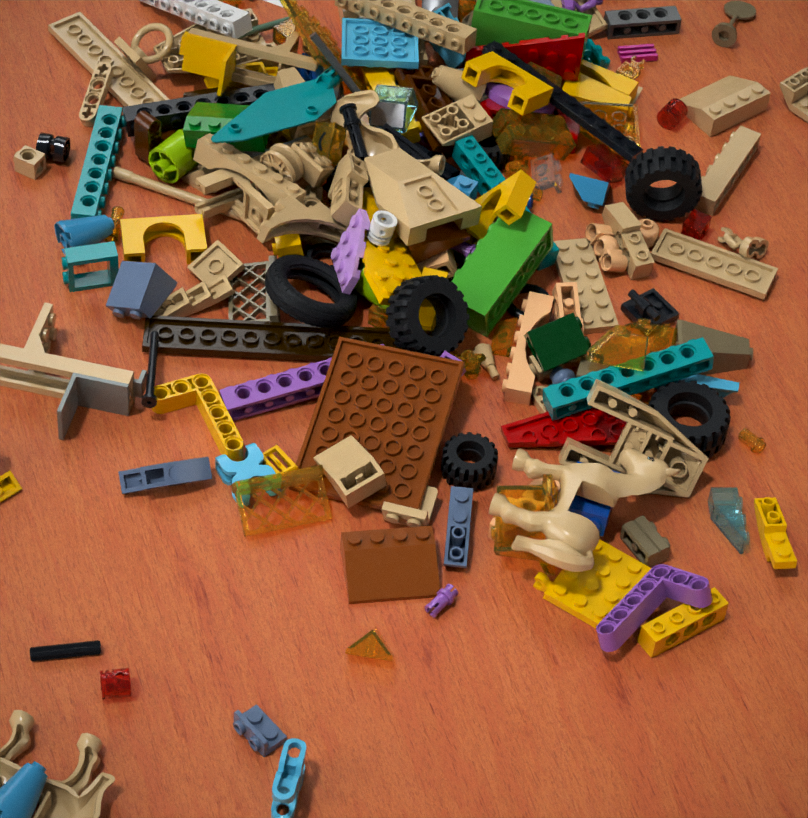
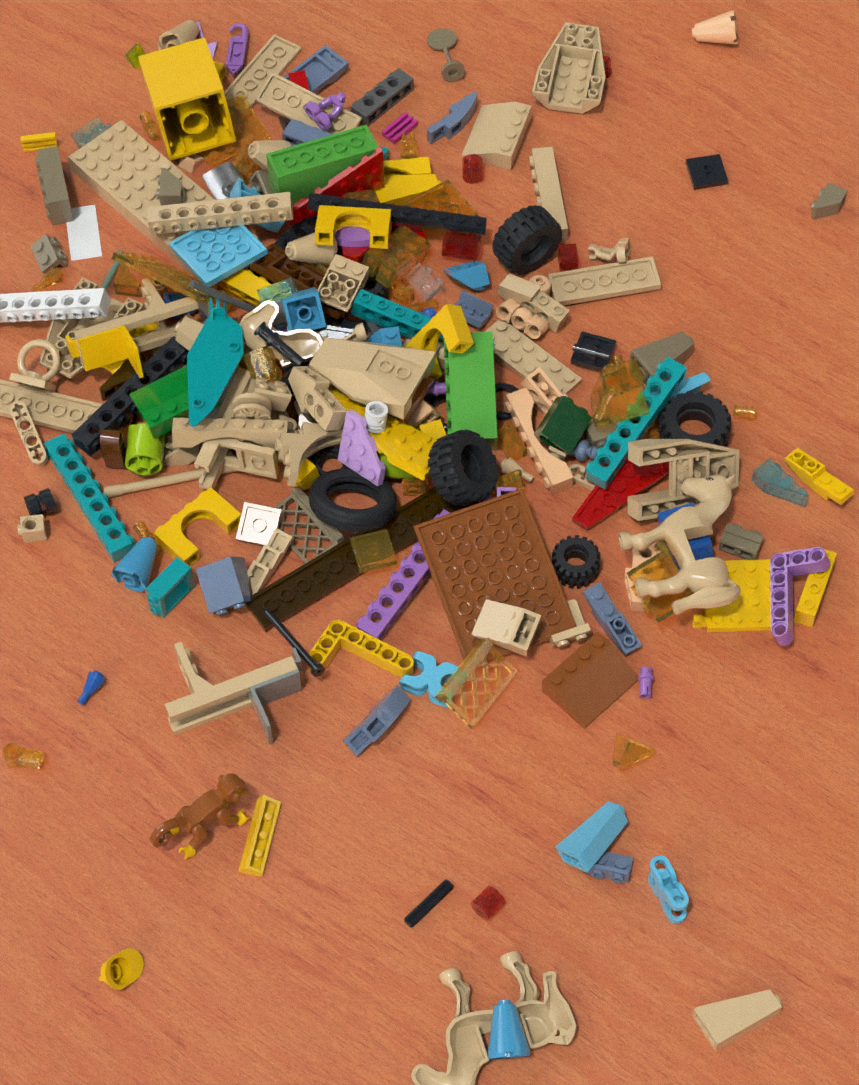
camera: 30 degrees left, 10 degrees up
(265, 691) = (592, 837): none -> medium azure slope
(292, 342) = (373, 551): none -> clear yellow plate
(292, 466) = (459, 659): yellow tile -> none
(402, 119) = (304, 310): none -> dark azure slope
(566, 217) = (476, 311): none -> sand blue bracket
(691, 73) = (458, 117): none -> sand blue slope

